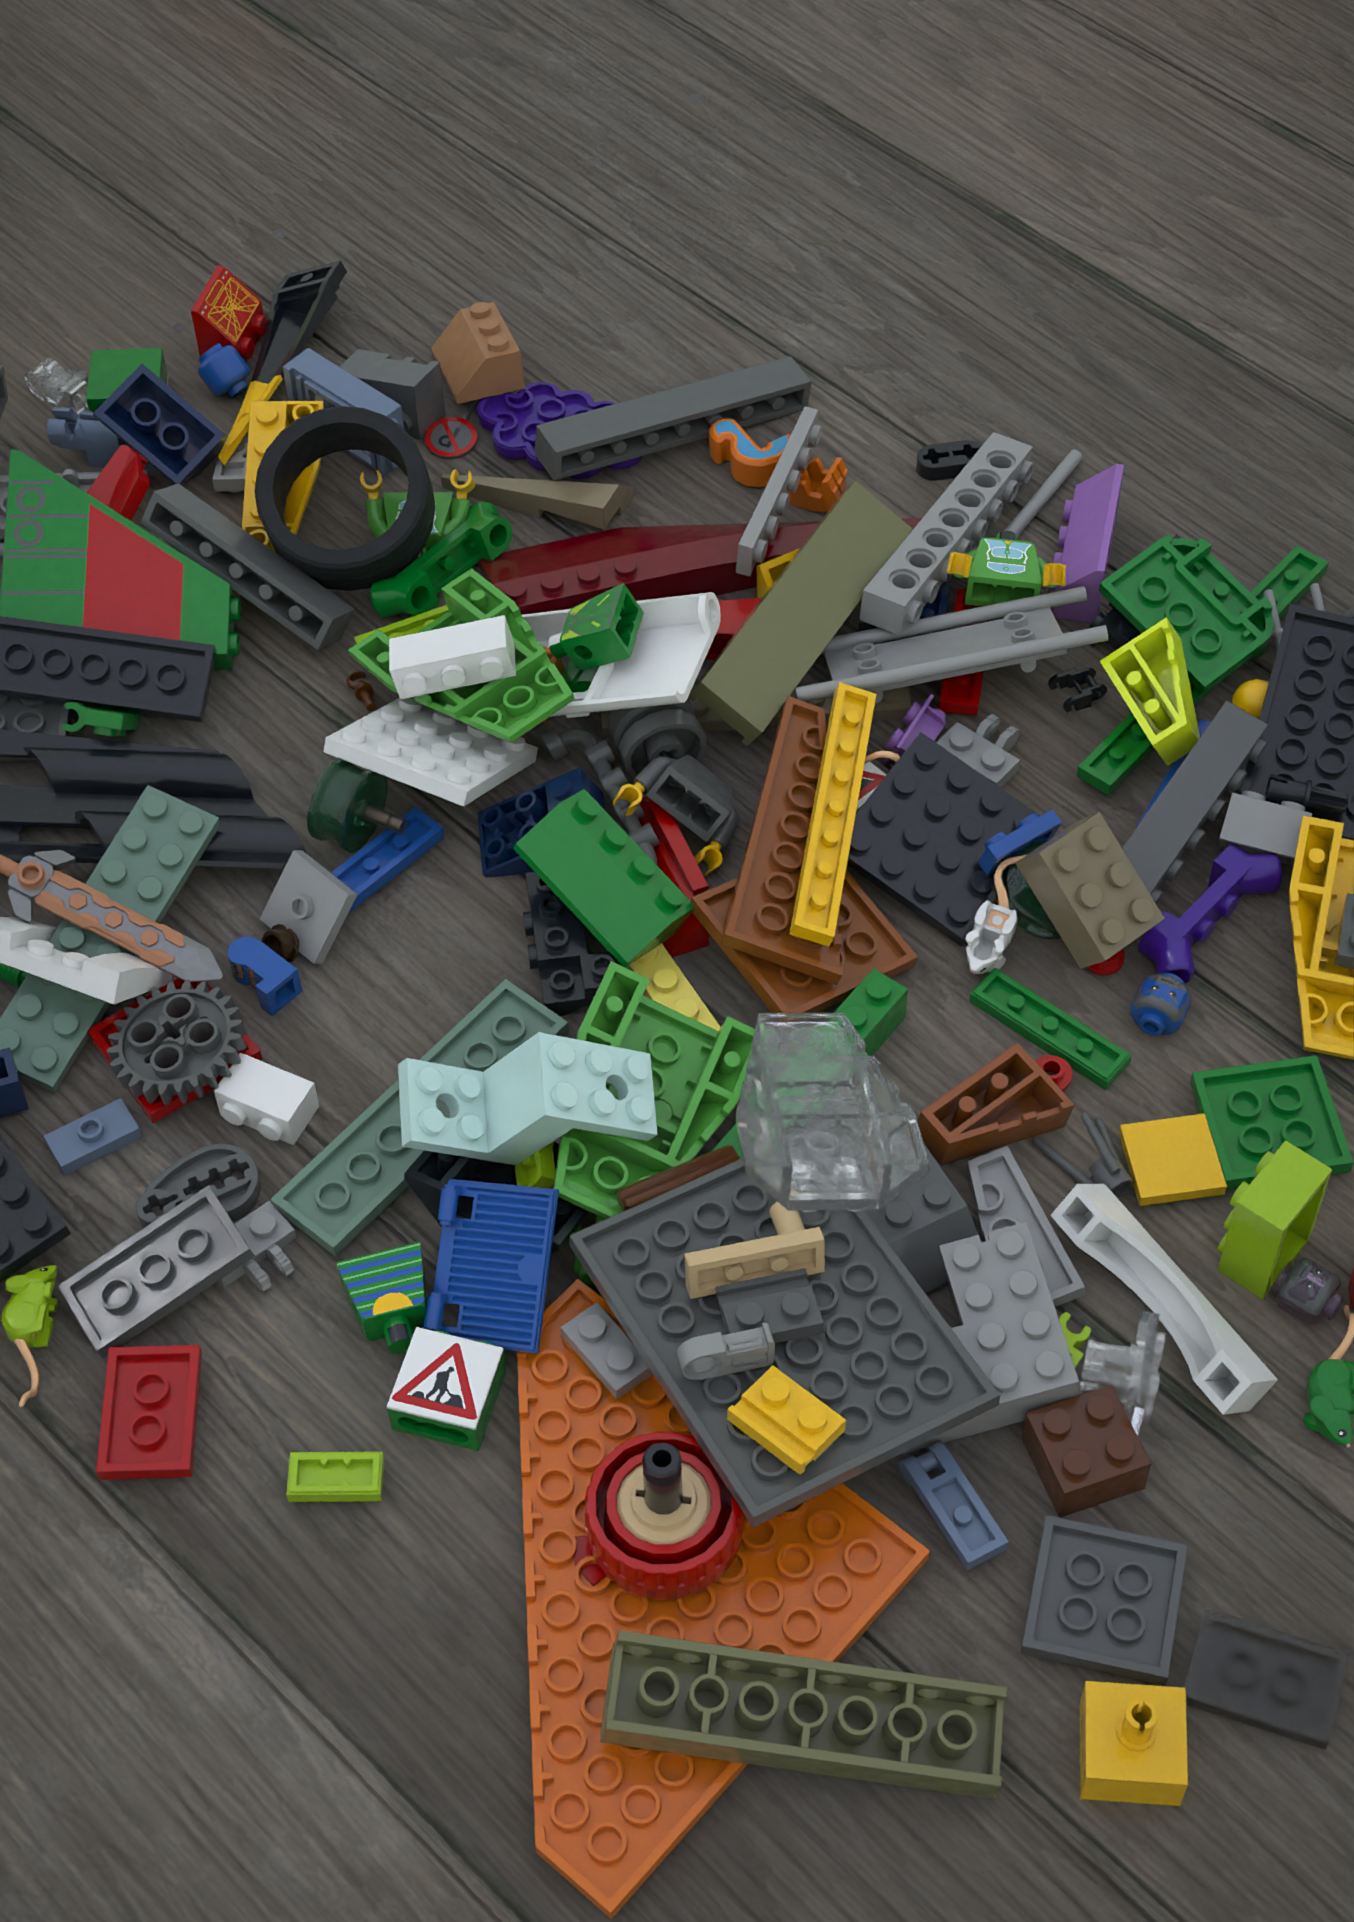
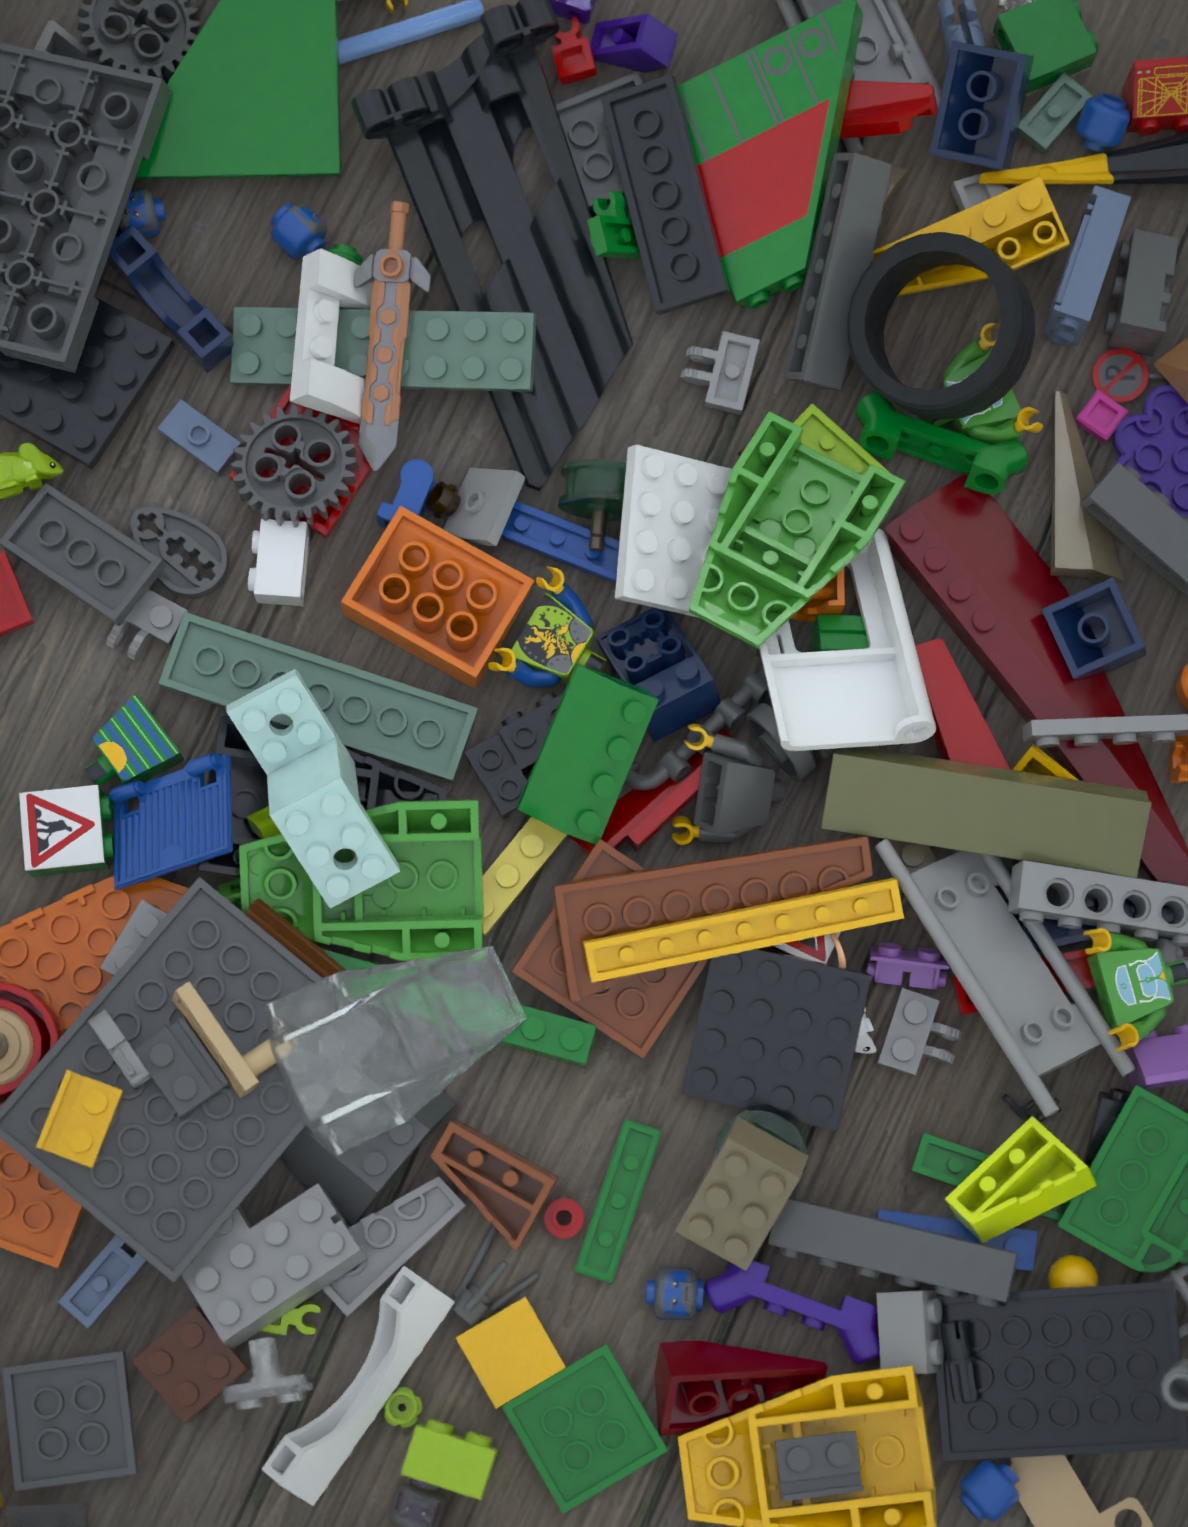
camera: 65 degrees right, 25 degrees up
(196, 394) = (1053, 113): none -> sand green plate
(288, 690) = (730, 374): none -> light grey hinge
(379, 972) = (437, 597): none -> orange slope
(452, 657) = (763, 517): white brick -> none
(468, 895) = (552, 639): none -> torso
(480, 458) = (1101, 416): none -> dark pink tile
(599, 630) = (859, 636): green torso -> none
(672, 500) = (1095, 630): none -> dark blue slope
(992, 928) = (696, 1116): white animal -> none
(1029, 831) = (799, 1117): blue plate -> none
(1204, 1268) = (413, 1407): none -> lime plate
(1260, 993) = (712, 1381): none -> dark red wedge

